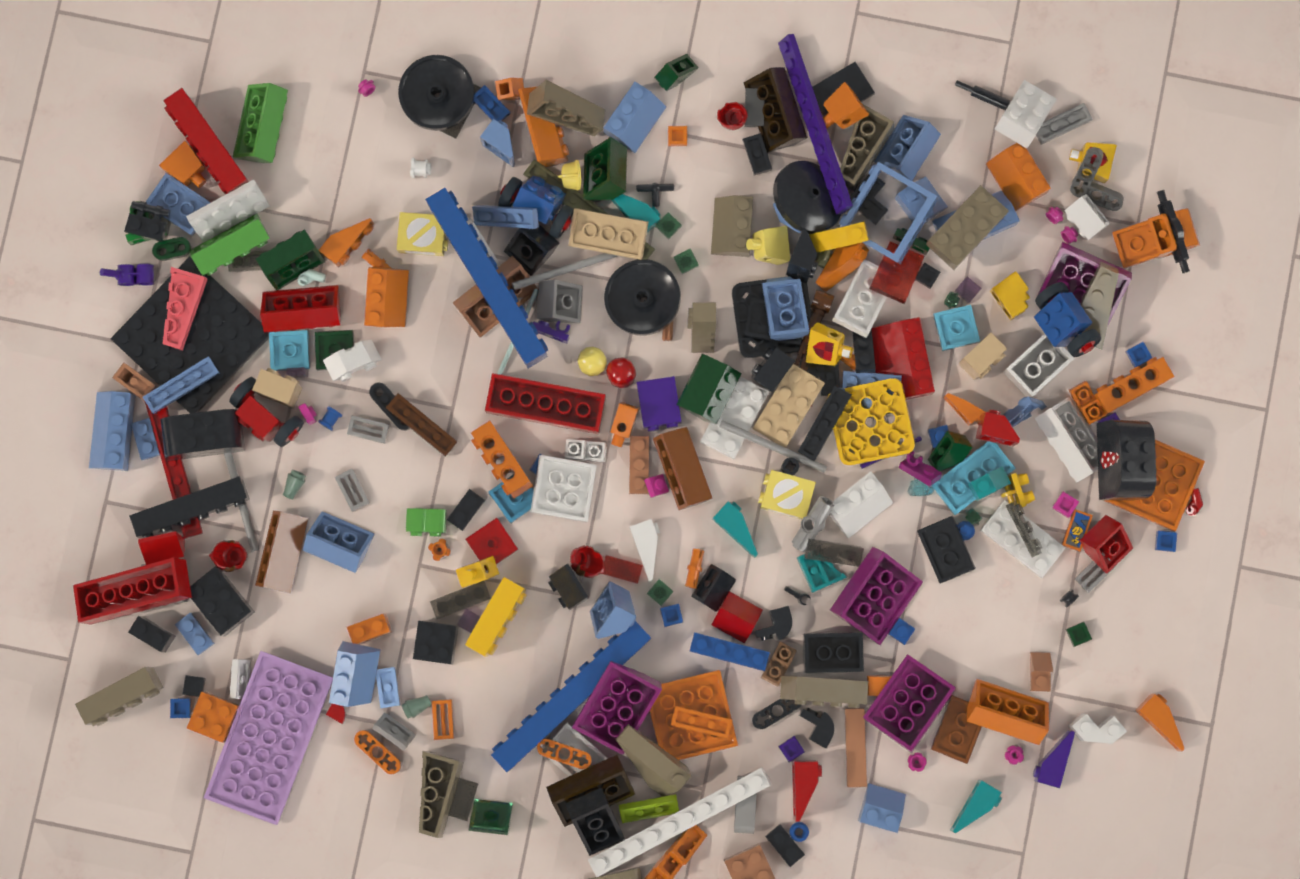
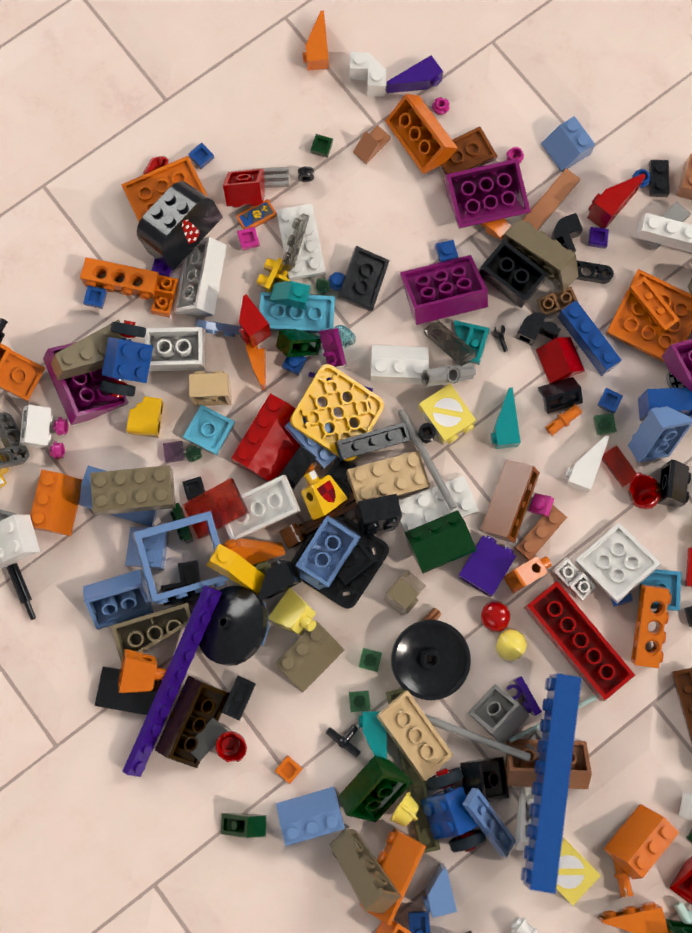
camera: 140 degrees left, 5 degrees down
(979, 803) = (497, 93): teal slope -> none

